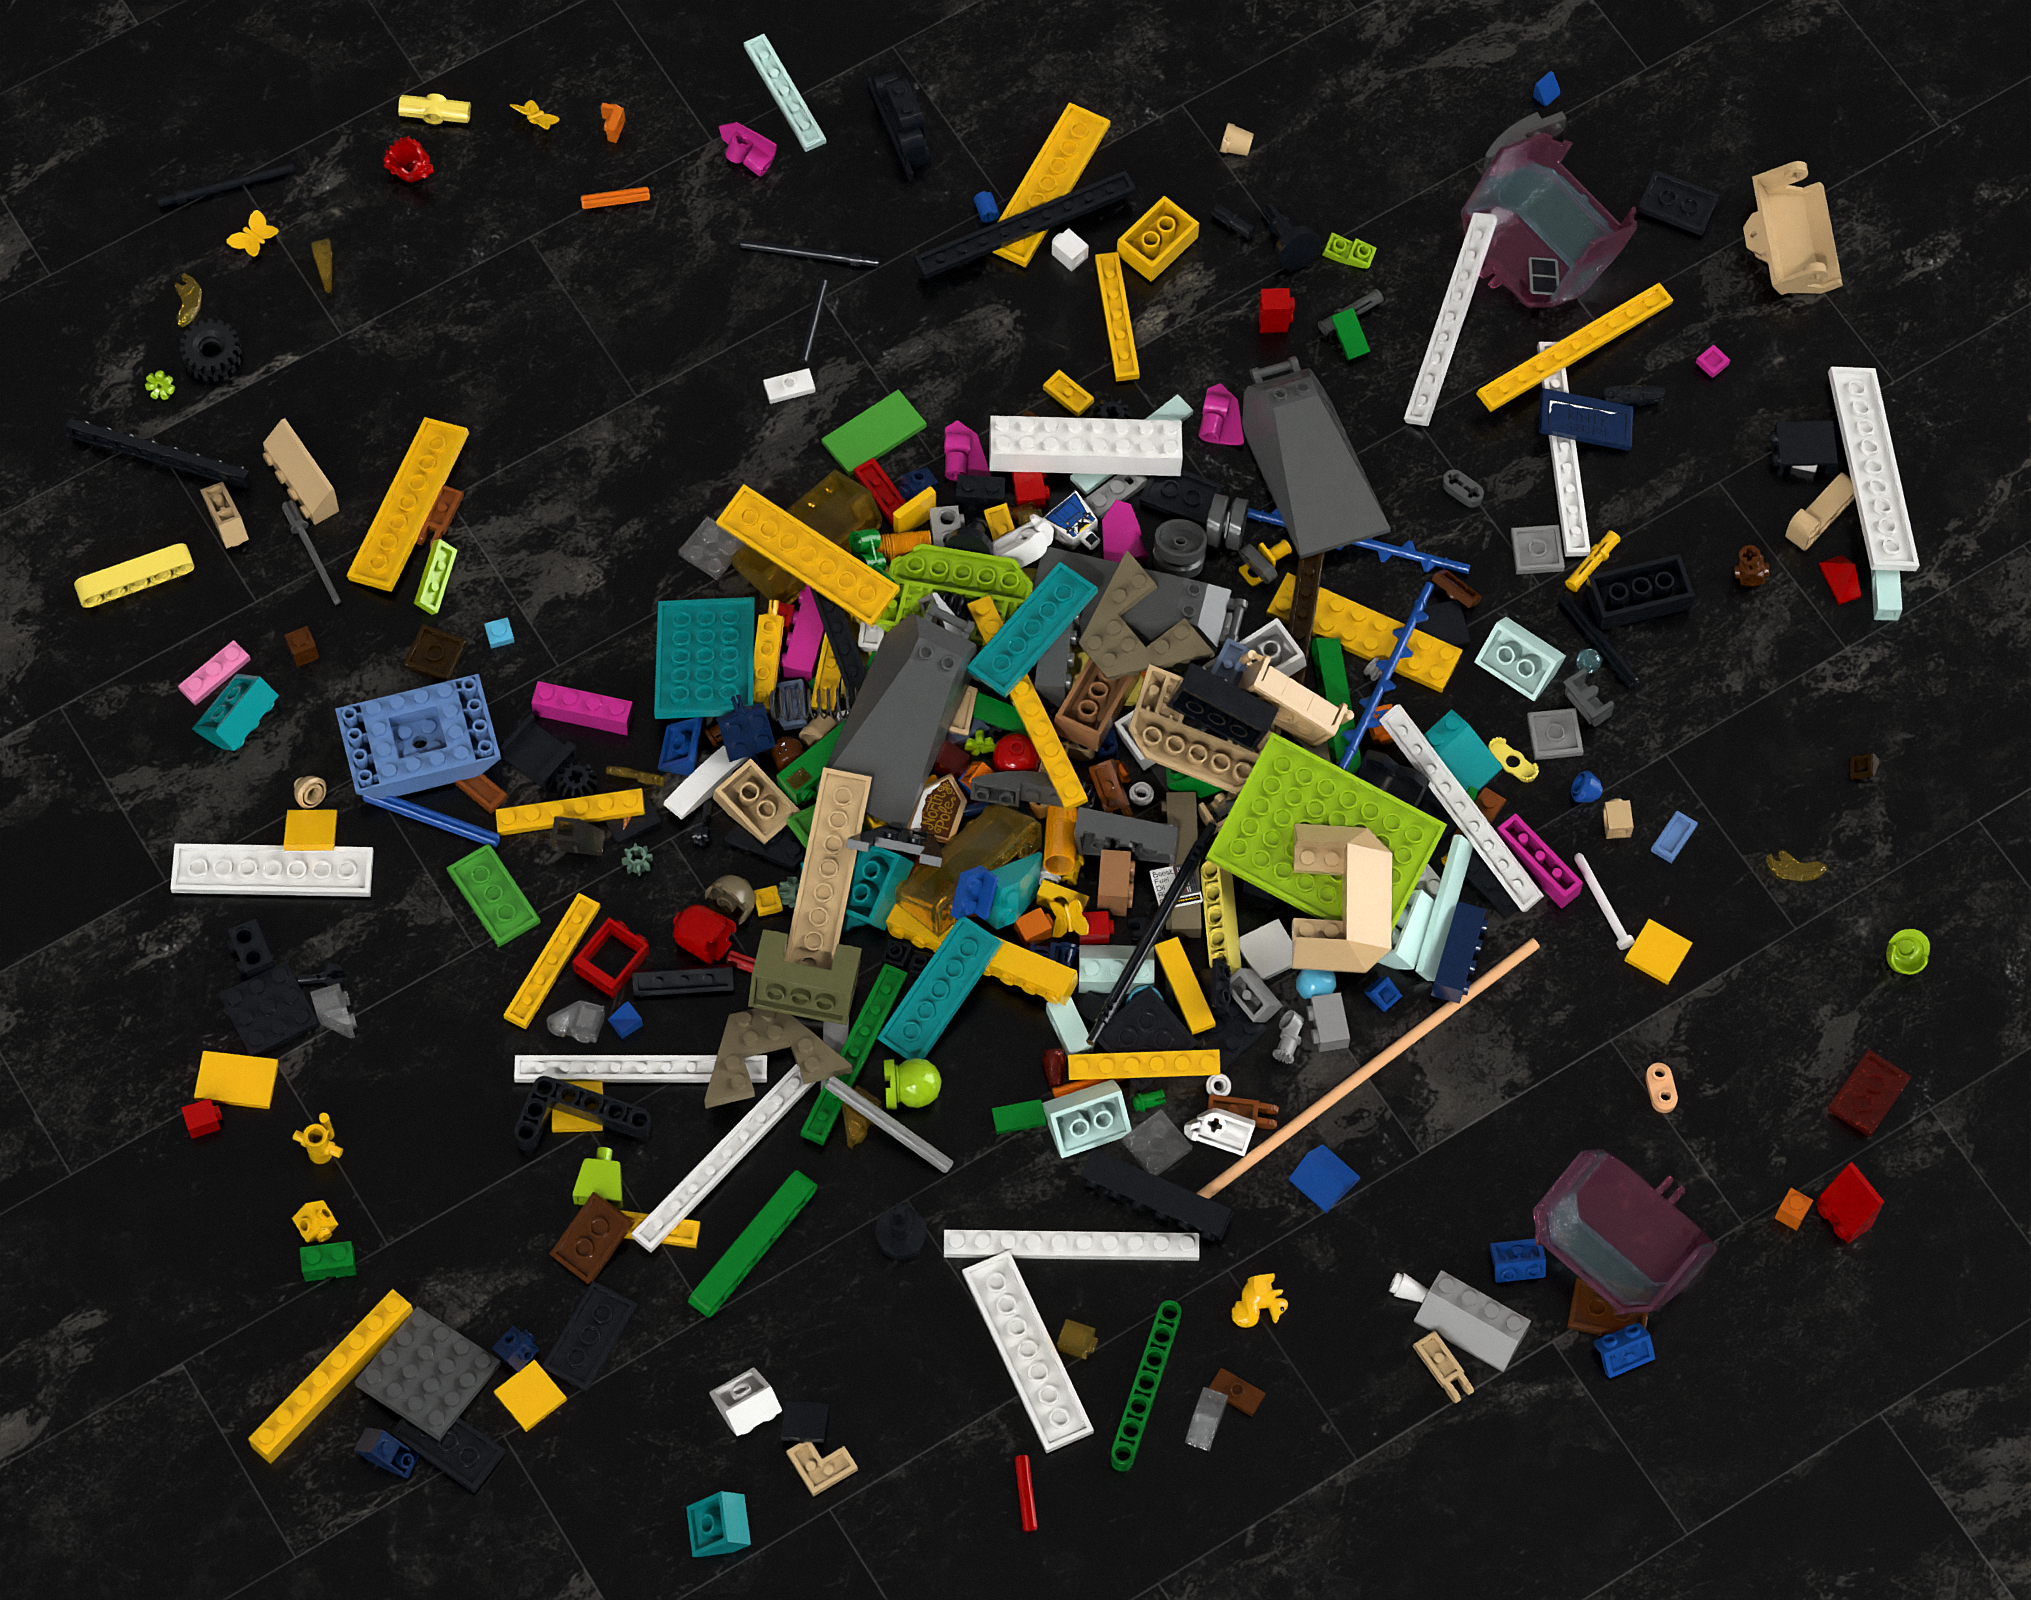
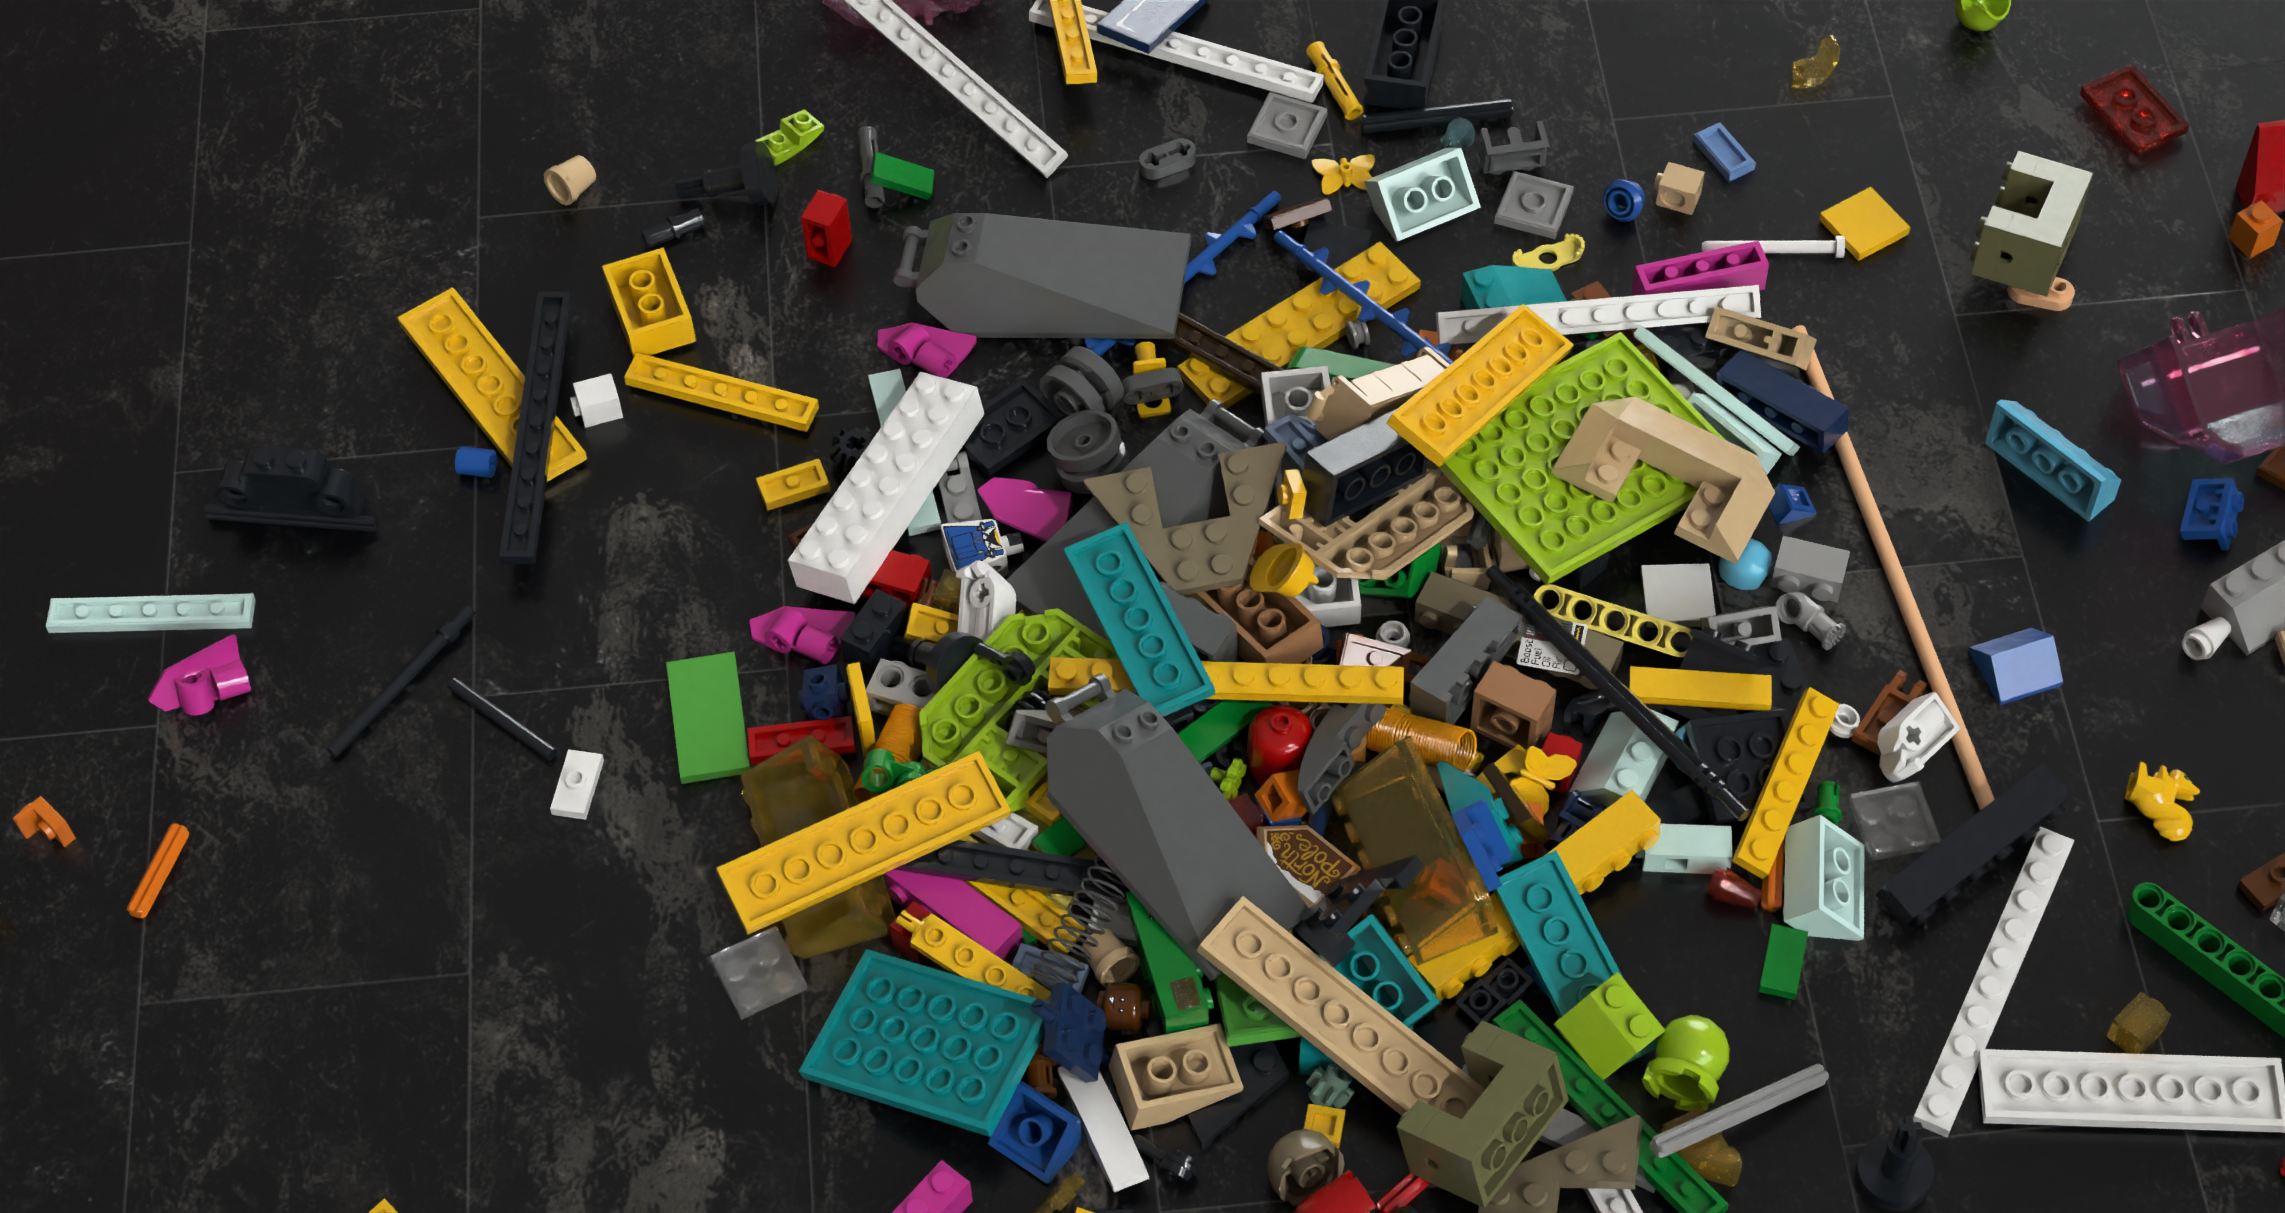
camera: 60 degrees left, 10 degrees down
(907, 1027) = (1609, 1026): none -> lime slope
(973, 579) = (1016, 665): none -> black plate
(1029, 908) = (1516, 804): none -> dark brown tile
(1120, 697) = (1283, 570): none -> yellow piece
(1173, 674) = (1292, 494): none -> yellow plate
(1324, 748) = (1479, 385): none -> yellow plate
(1502, 925) = (1761, 338): none -> tan slope
(1506, 1139) = (2051, 459): none -> medium azure slope
(1514, 604) = (1346, 173): none -> yellow piece
(1721, 1070) = (2035, 223): none -> olive piece

